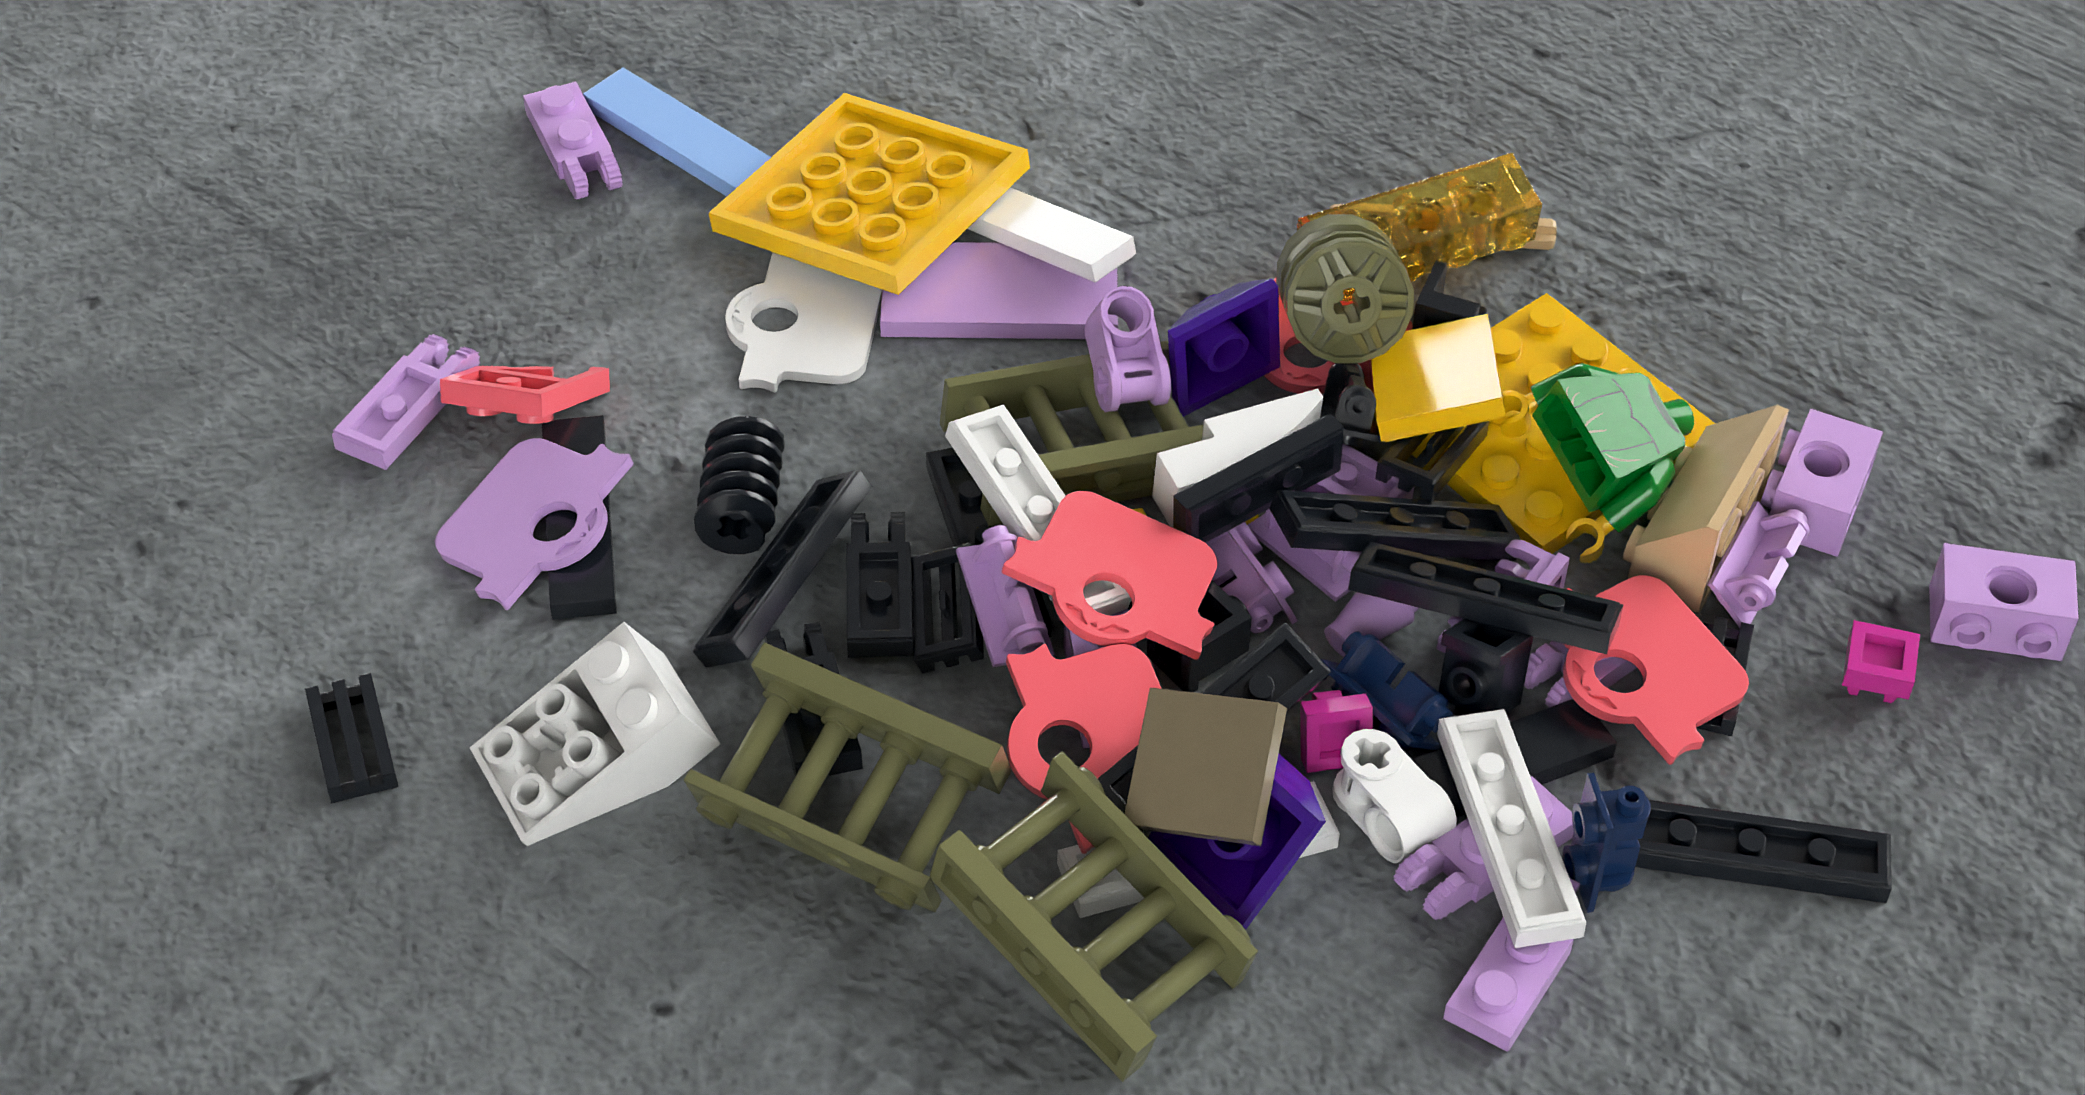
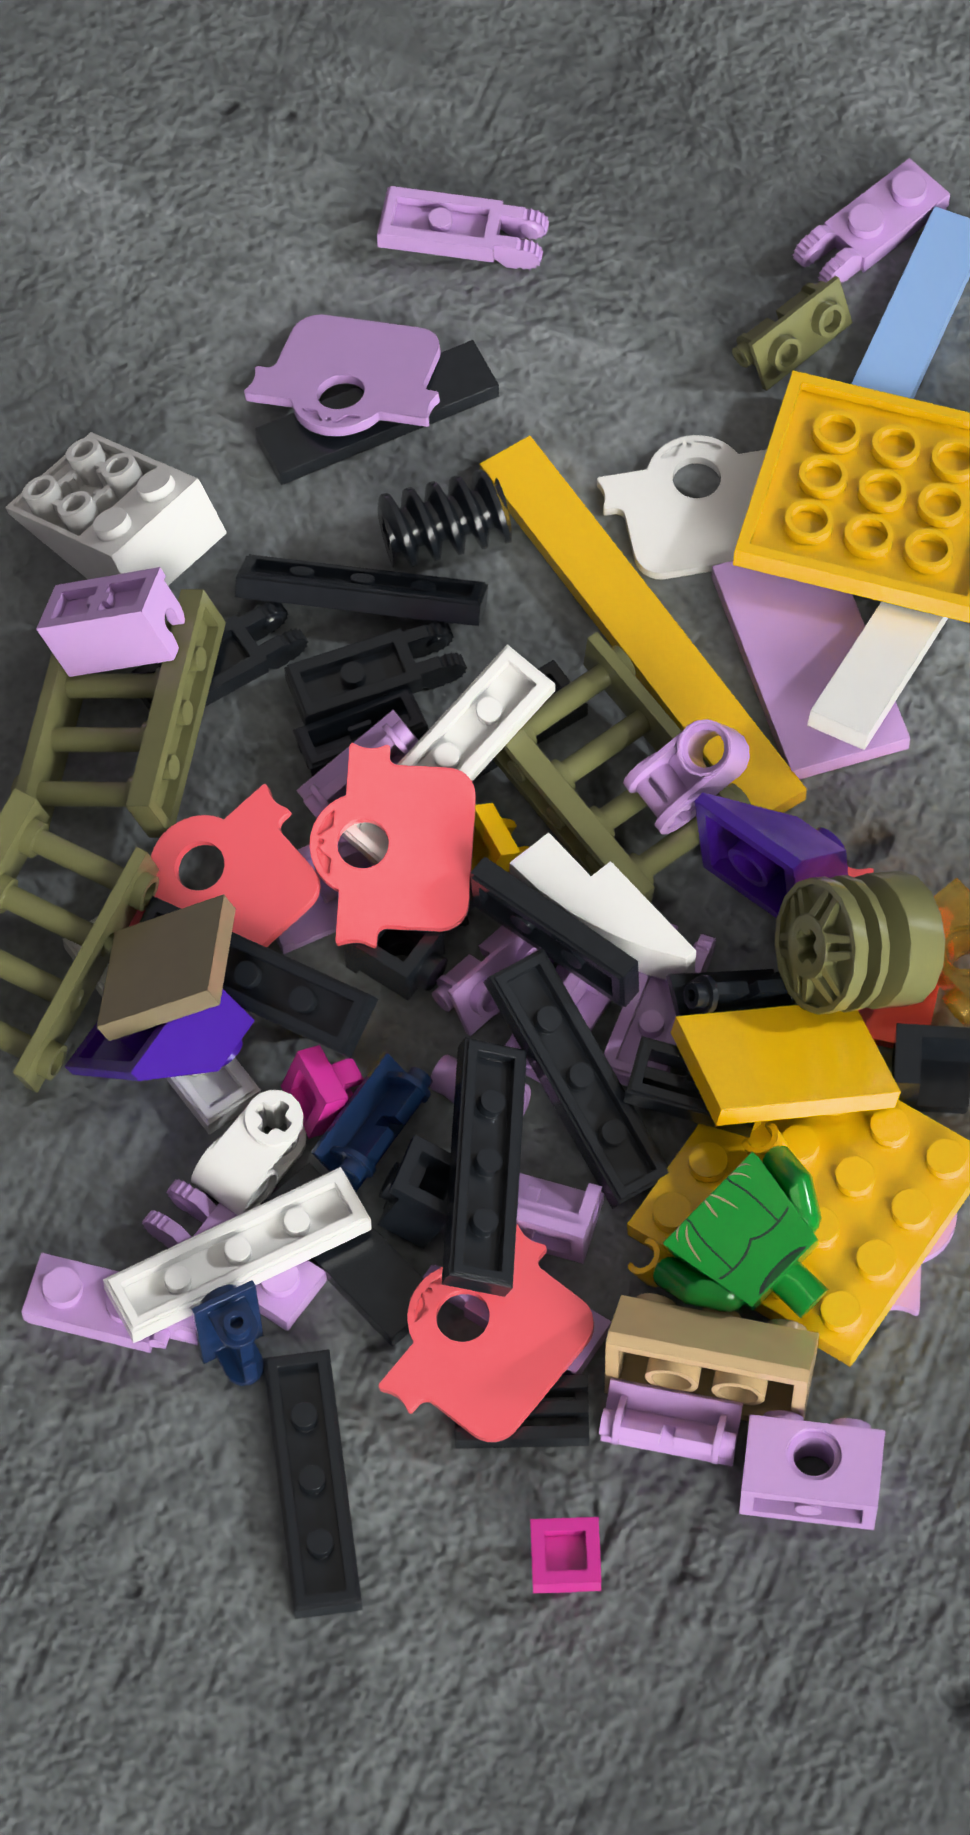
camera: 75 degrees right, 15 degrees up
(342, 699) = (63, 336): black tile -> none
(523, 391) = (500, 312): coral wing -> none
(649, 206) = (801, 330): none -> olive hinge
(766, 723) = (111, 622): none -> lavender hinge
(863, 398) = (634, 617): none -> yellow tile
(2003, 602) = (706, 1629): lavender brick -> none

